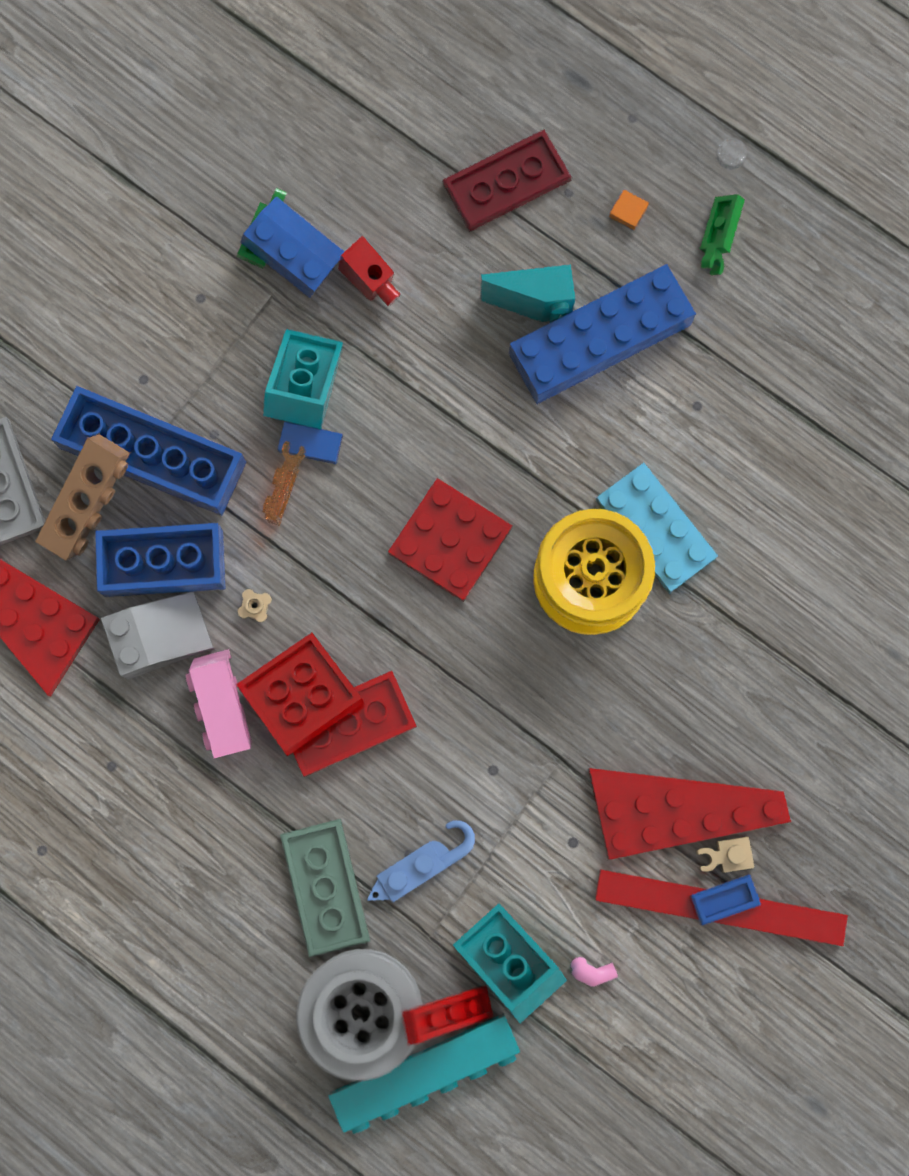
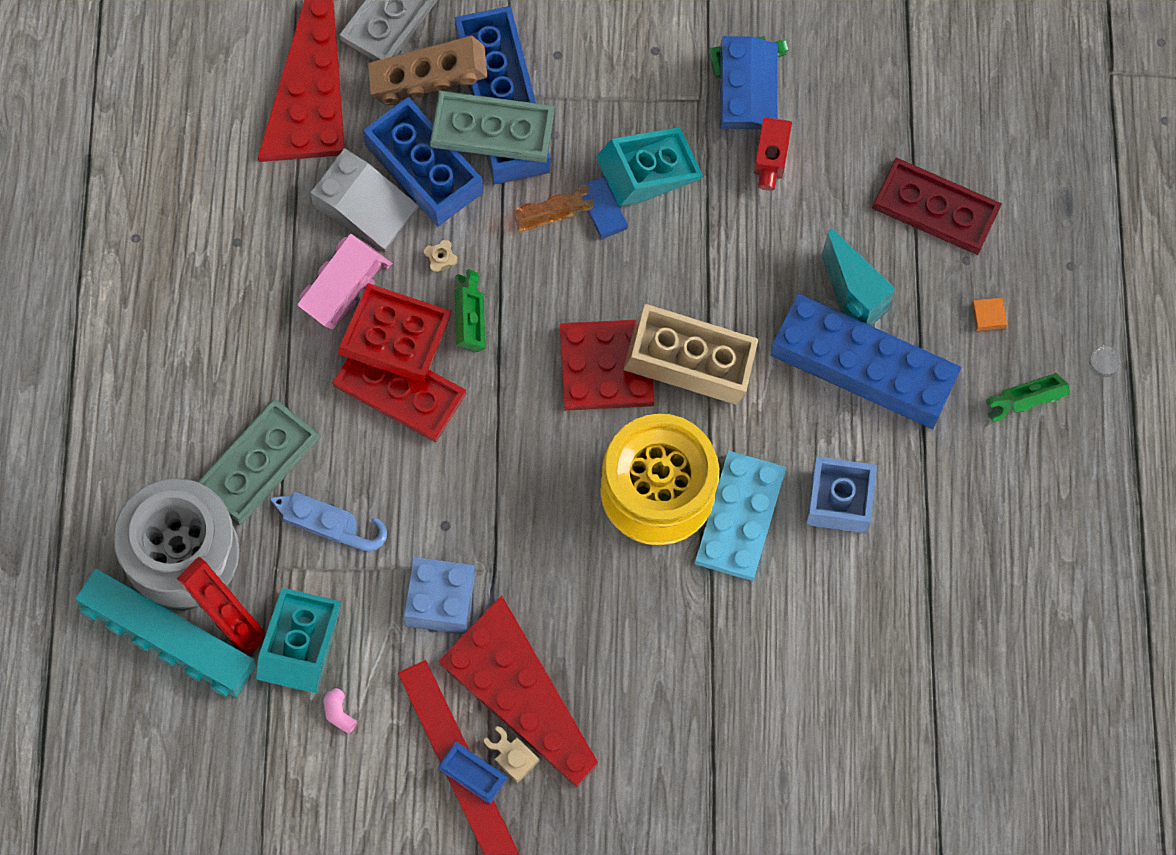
camera: 50 degrees right, 10 degrees down
(178, 480) = (492, 126): none -> sand green tile
(323, 618) = (469, 312): none -> green plate
(499, 467) = (691, 354): none -> tan brick
(556, 819) = (440, 595): none -> medium blue brick
(702, 436) = (841, 495): none -> medium blue brick

